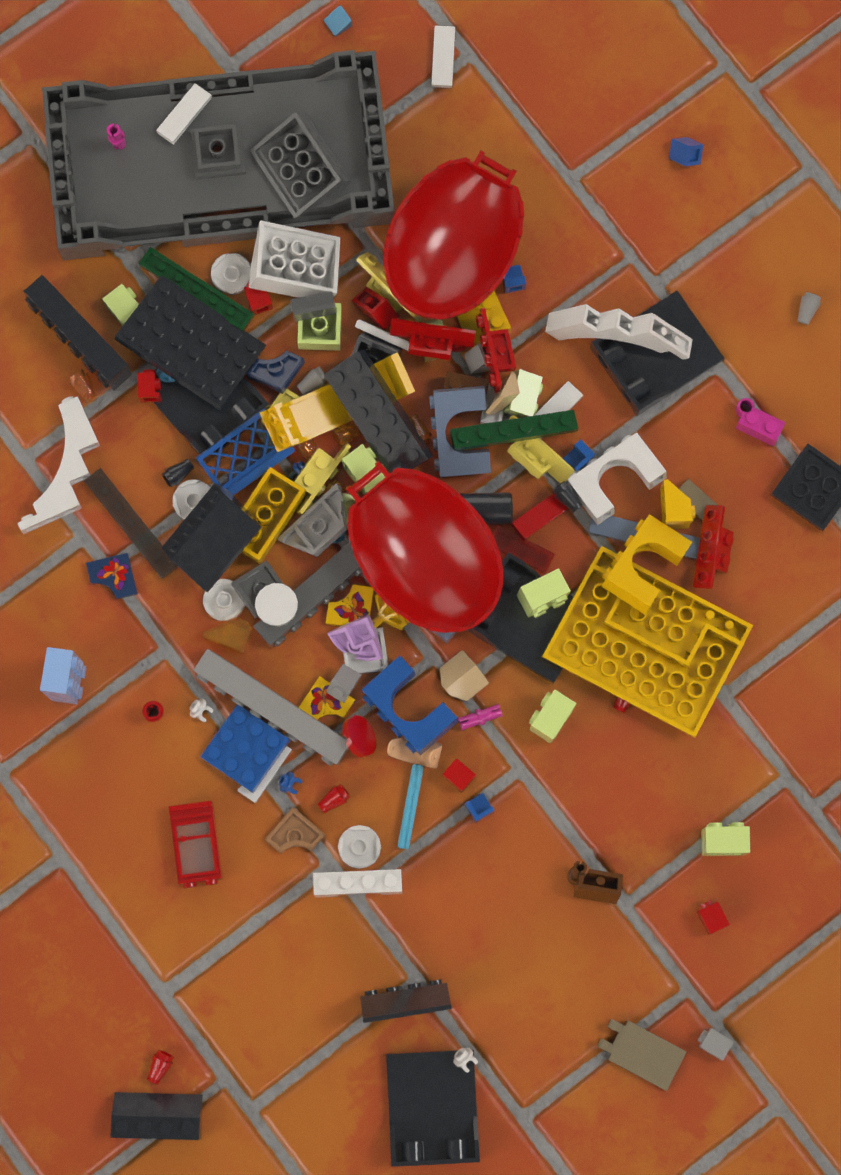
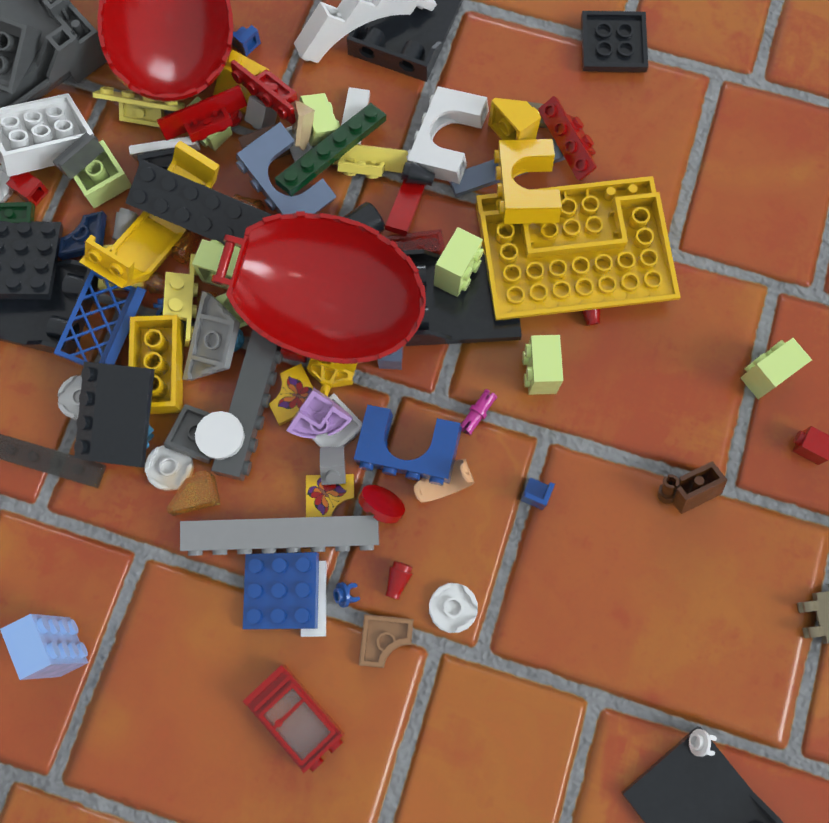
camera: 35 degrees left, 5 degrees down
(114, 573) = (46, 513): dark blue tile -> none
(149, 707) = (160, 617): red cone -> none
(175, 474) = (48, 383): black cone -> none
(197, 708) = (209, 584): white plate -> none
(357, 882) = (480, 644): white arch -> none
(375, 308) = (138, 130): red slope -> none
(406, 1002) = (610, 731): black slope -> none
(410, 806) = (473, 536): medium azure axle -> none
(459, 775) = (498, 476): red panel -> none
(462, 677) = (436, 388): tan slope -> none
(579, 456) = (403, 136): blue panel -> none
(758, 423) = (531, 20): dark pink hinge -> none

